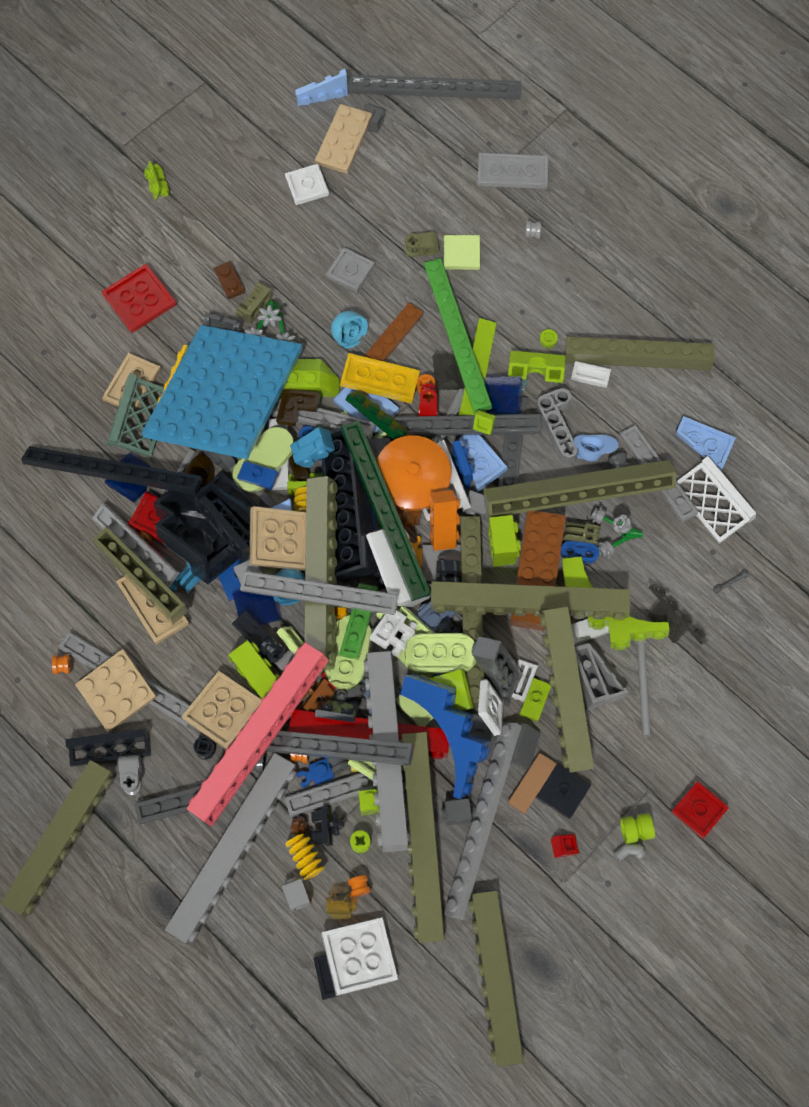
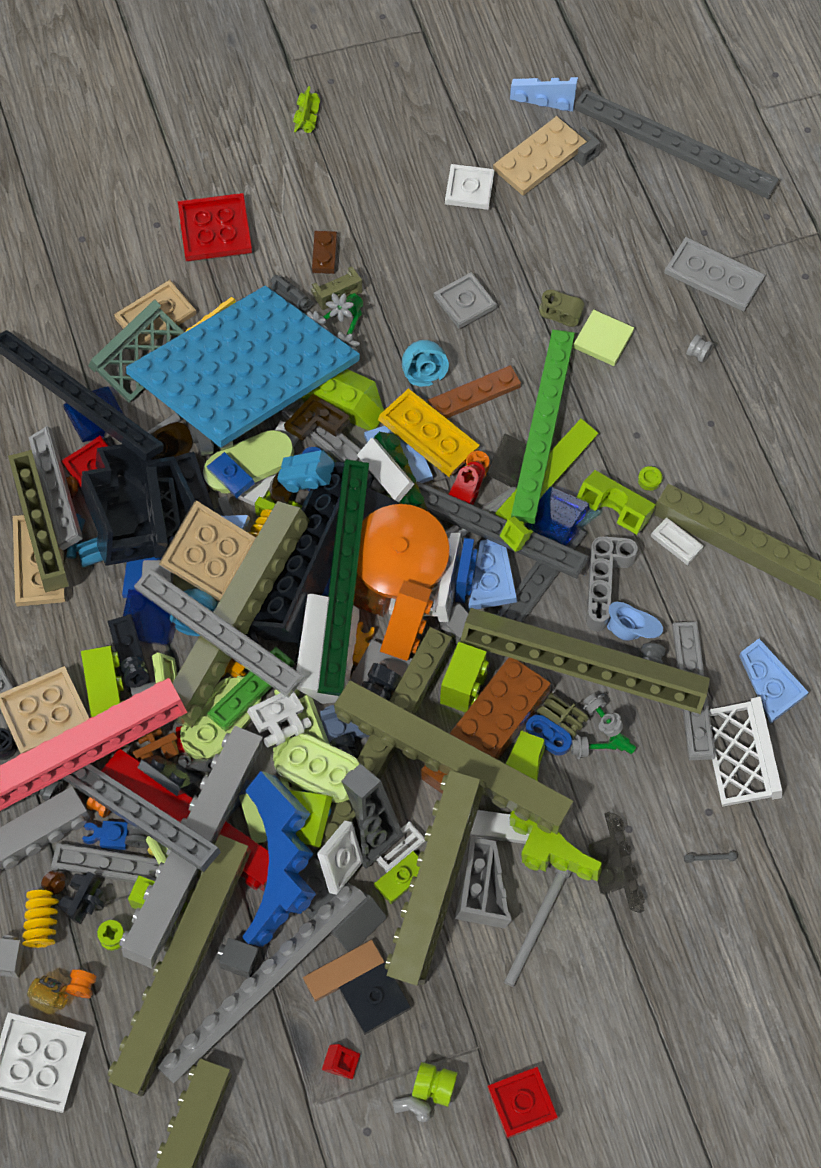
camera: 25 degrees right, 5 degrees down
(369, 419) = (385, 469): none -> white tile

